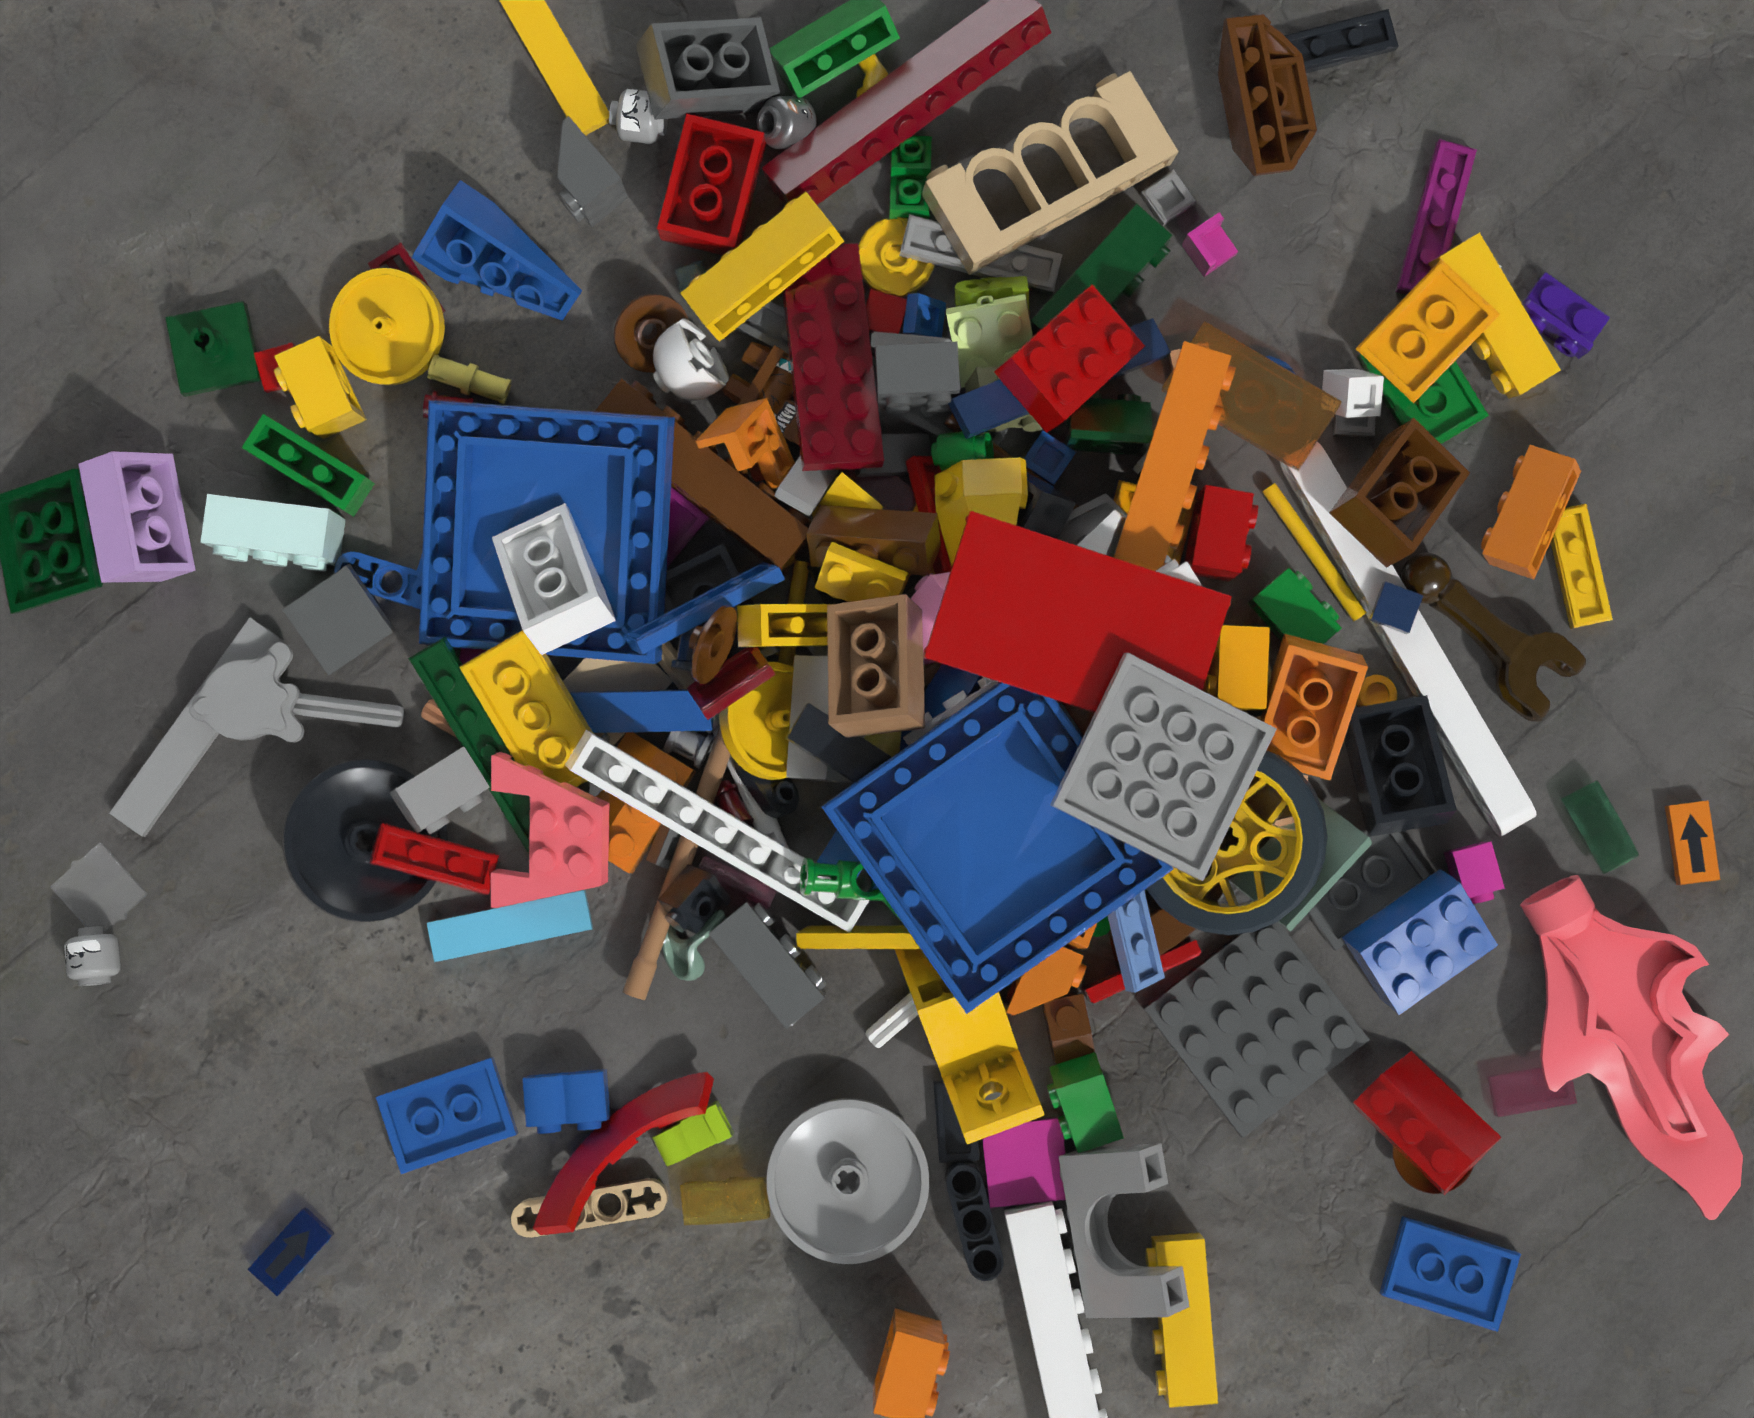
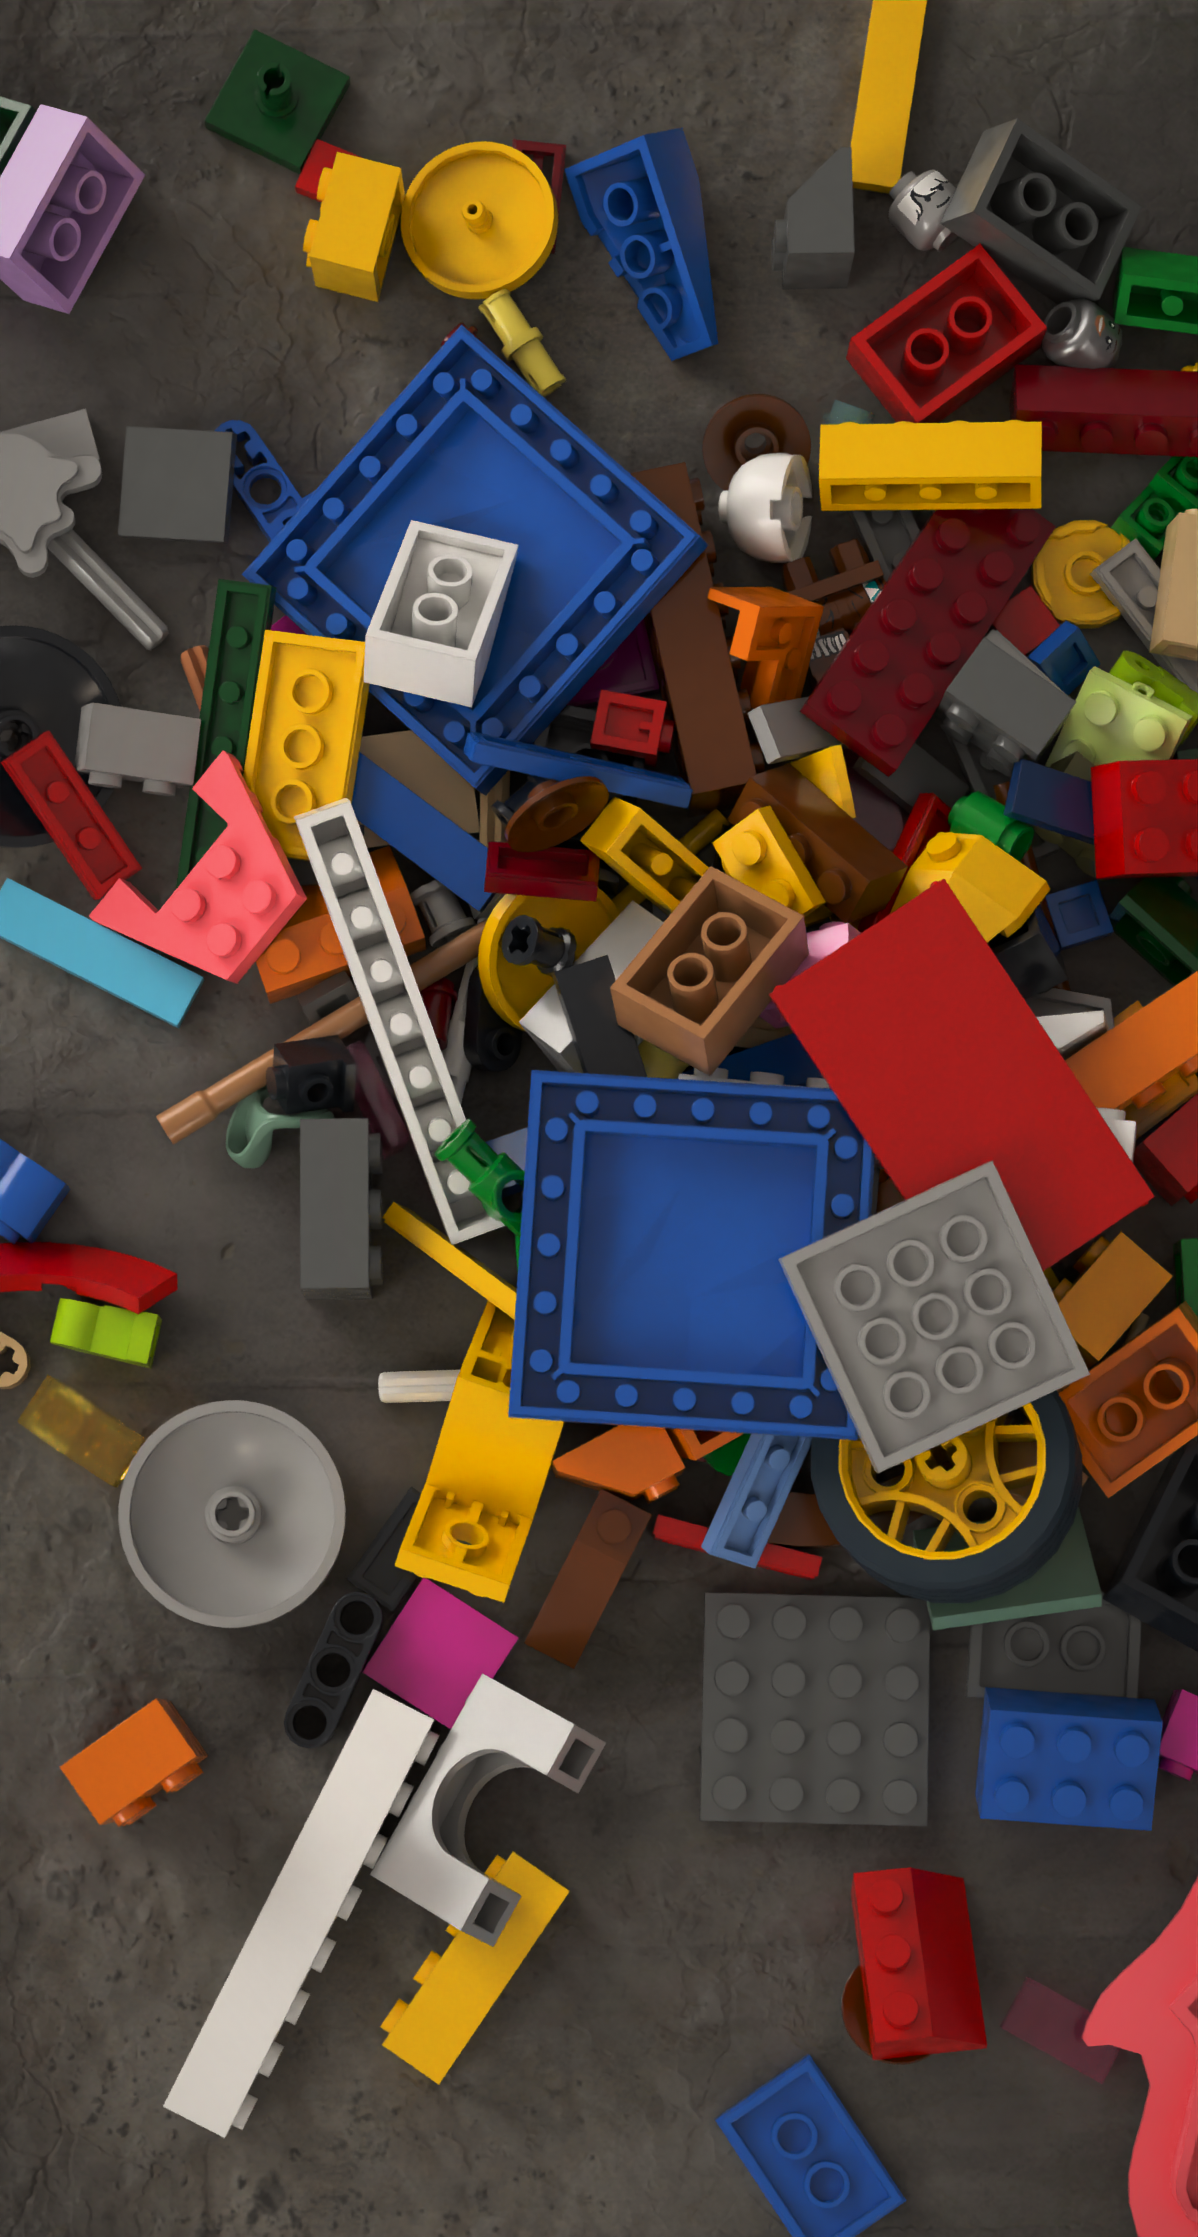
camera: 35 degrees right, 5 degrees down
(272, 532) = (184, 336): light aqua brick -> none
(308, 465) = (278, 298): green brick -> none
(714, 555) = (632, 726): none -> red bracket
(759, 727) = (529, 942): none -> black bush
(1085, 1102) = (558, 1637): green brick -> none

